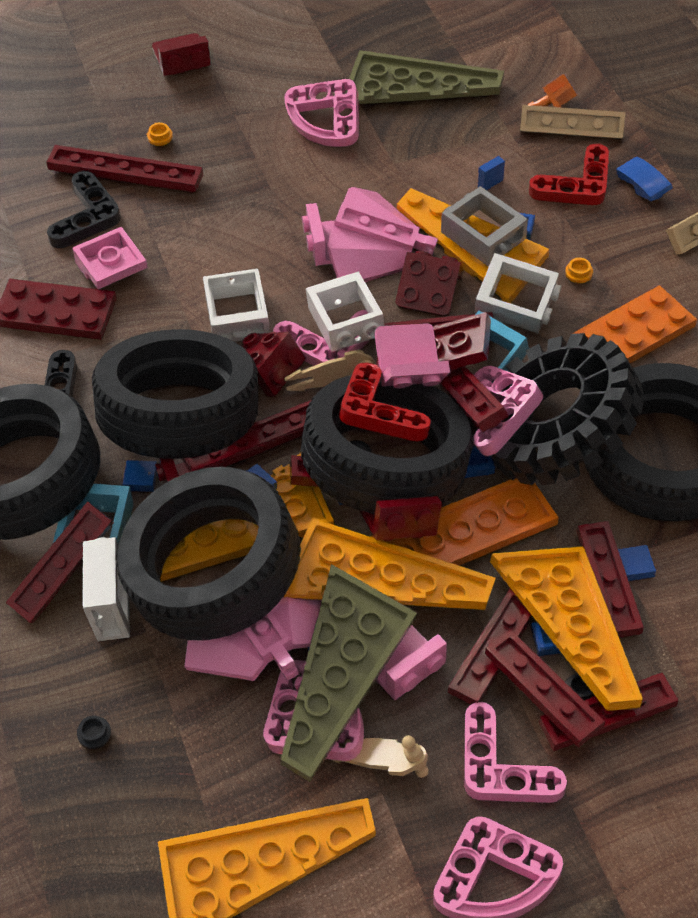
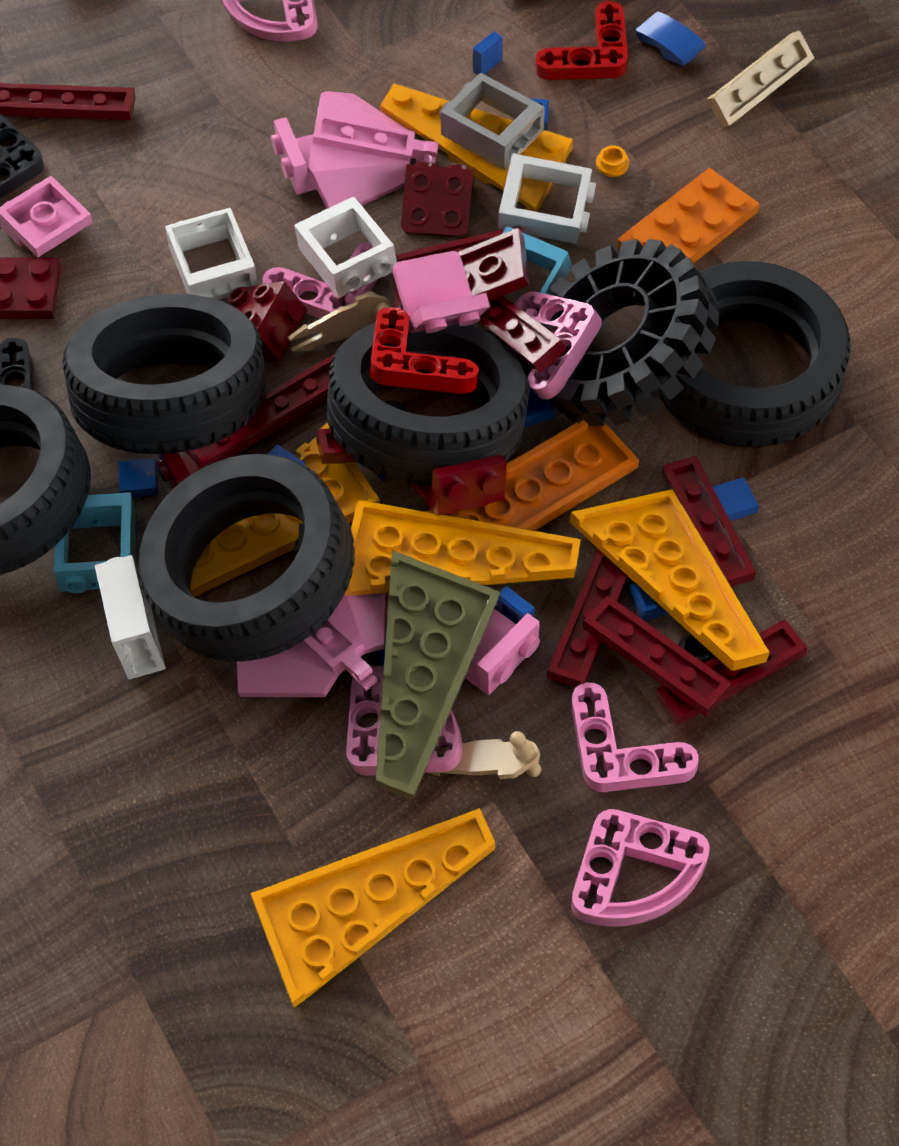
camera: 10 degrees left, 5 degrees up
(58, 563) = (67, 594): dark red plate -> none
(93, 732) = (148, 783): black plate -> none
(159, 134) = (70, 51): light orange plate -> none
(429, 626) = (513, 605): none -> blue tile

